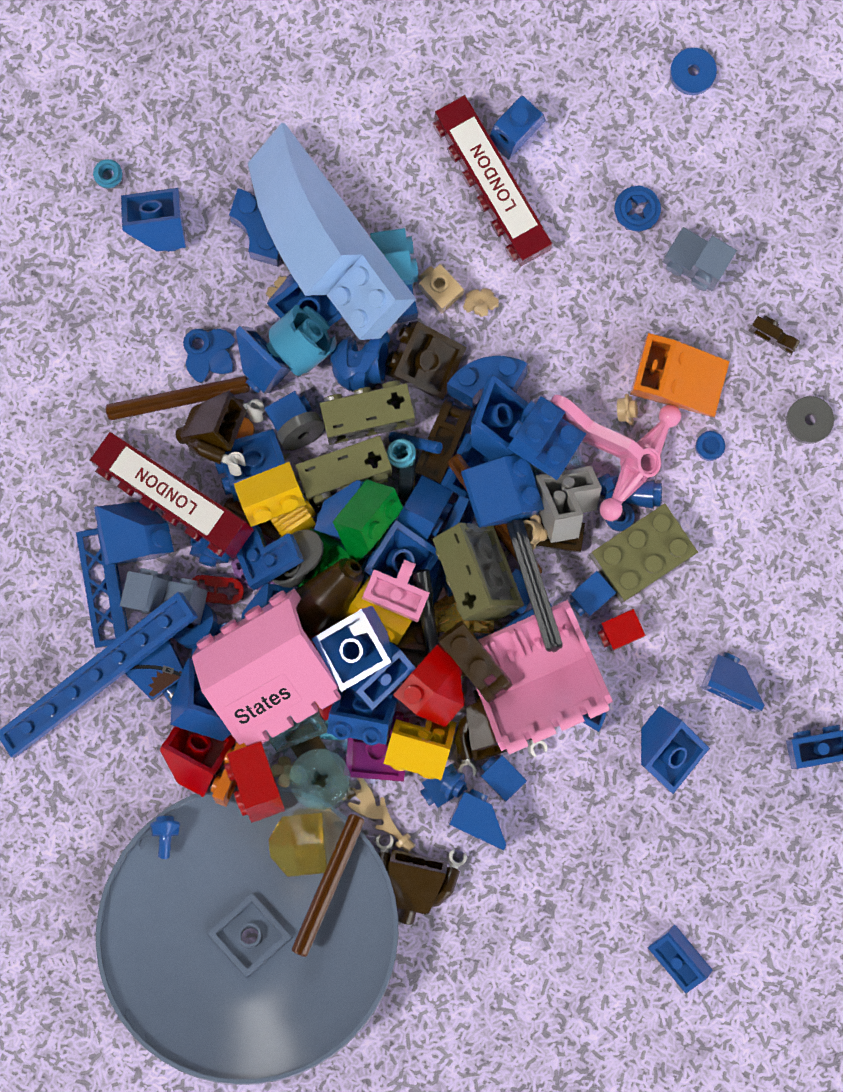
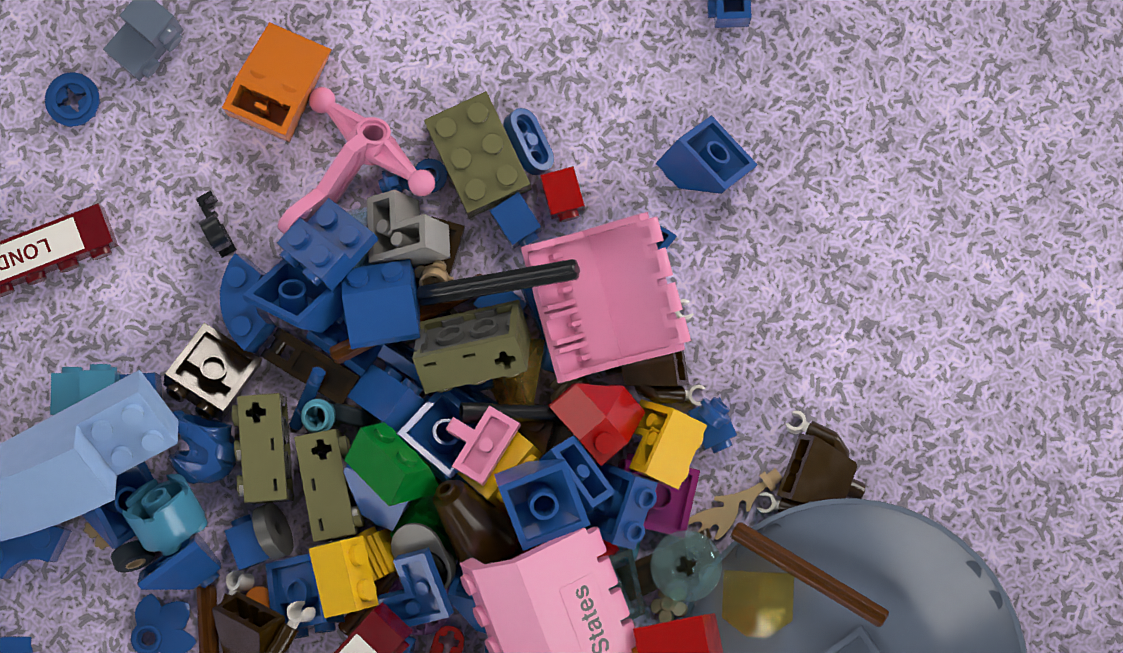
camera: 75 degrees left, 0 degrees up
(262, 318) = (131, 557): none -> black wheel
(440, 287) = (128, 343): tan brick -> none
(474, 660) = (575, 365): dark brown plate -> none
(477, 818) = (756, 390): blue slope -> none
(480, 301) = (152, 298): tan plant -> none
(502, 777) = (711, 355): blue brick -> none
(542, 343) = (212, 228): none -> black piece
(627, 409) = (306, 148): tan plate -> none
(647, 495) = (411, 140): blue cone -> none
(659, 596) = (528, 141): none -> blue plate
(680, 959) = (945, 185): blue slope -> none
(710, 445) = (363, 59): blue tile -> none
(732, 682) = (641, 76): blue slope -> none

